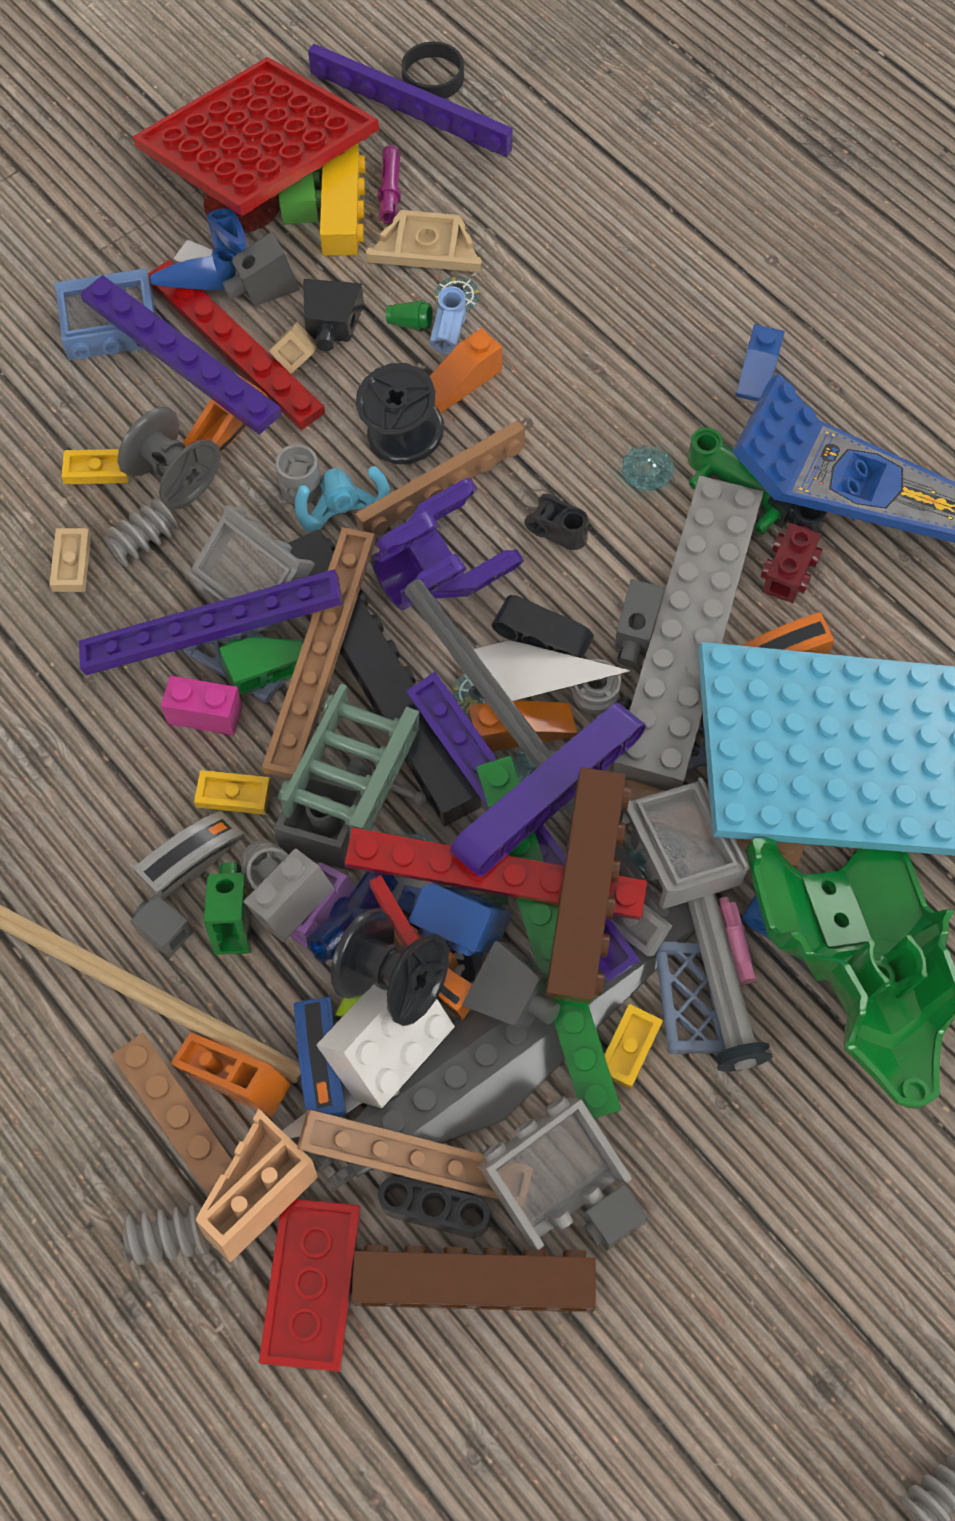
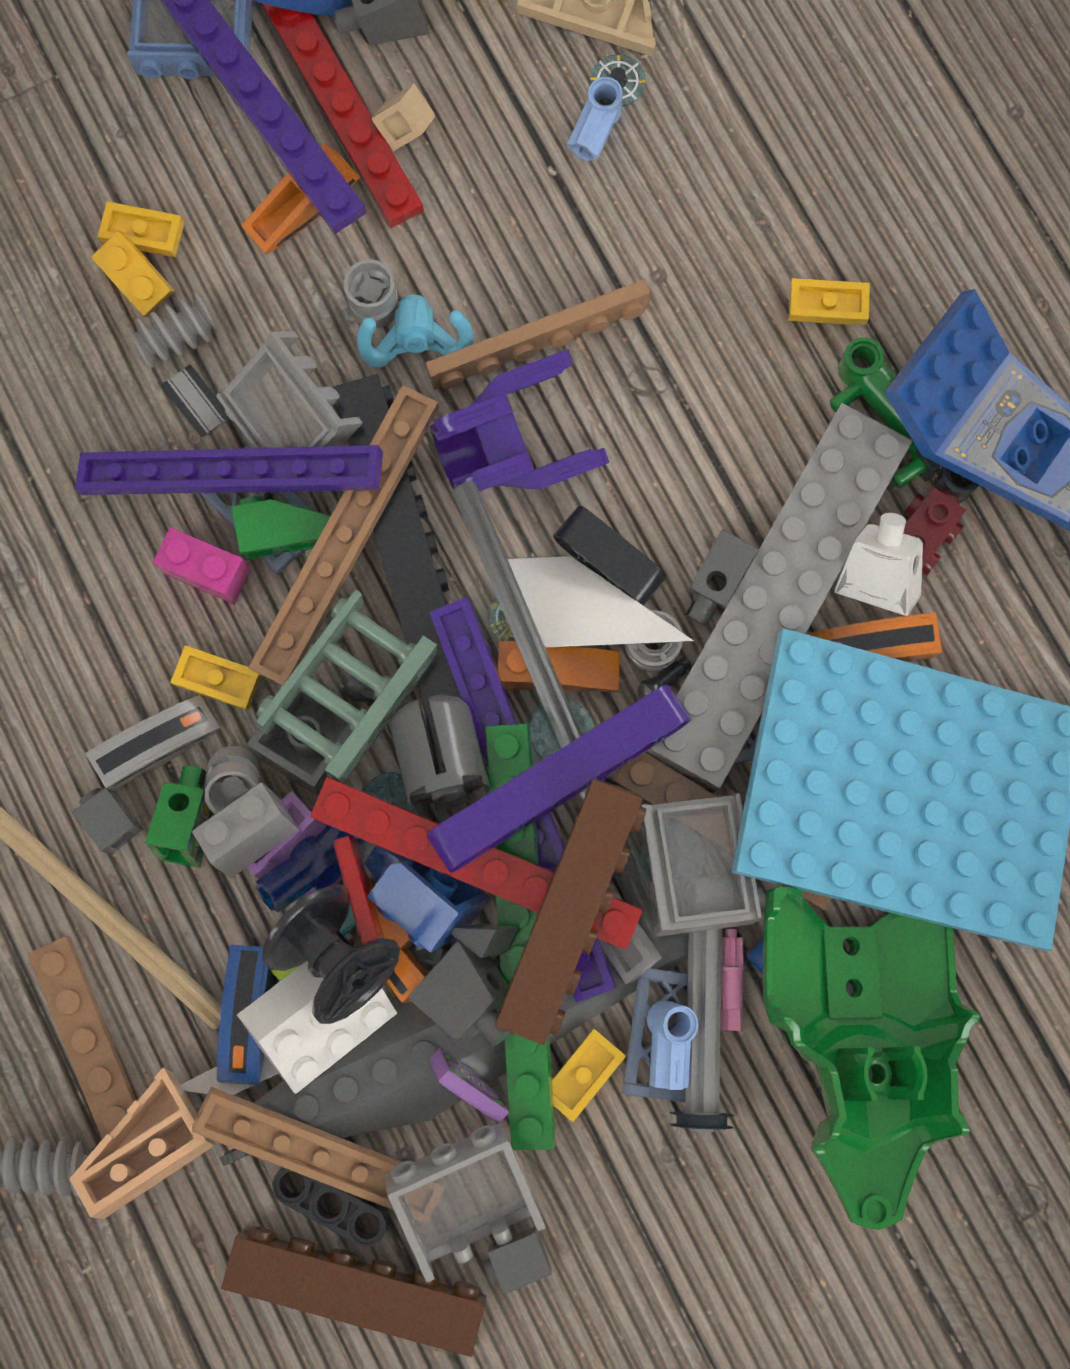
camera: 15 degrees right, 15 degrees up
(70, 560) = (89, 346): tan plate -> none
(96, 498) = (132, 273): none -> yellow plate
(154, 443) = (208, 221): dark grey piece -> none
(167, 586) = (195, 400): none -> sticker
(232, 1073) = (149, 1006): orange slope -> none
(310, 1286) = (185, 1254): red plate -> none
(331, 310) = (458, 76): black torso -> none
(400, 413) = (506, 240): black piece -> none
(411, 315) = (553, 101): green cone -> none
(439, 798) = (418, 757): none -> dark grey cylinder
(466, 368) = (592, 196): orange slope -> none
(521, 933) = (486, 939): none -> dark grey slope
(532, 1071) = (468, 1085): none -> medium lavender tile
(555, 518) = (656, 415): black piece -> none
(653, 478) = (791, 384): clear light blue gear -> none
(667, 413) = (829, 301): none -> yellow plate
(699, 998) = (671, 1048): none -> light blue piece
(759, 361) = (959, 259): slope -> none
(768, 586) = (884, 567): none -> white torso

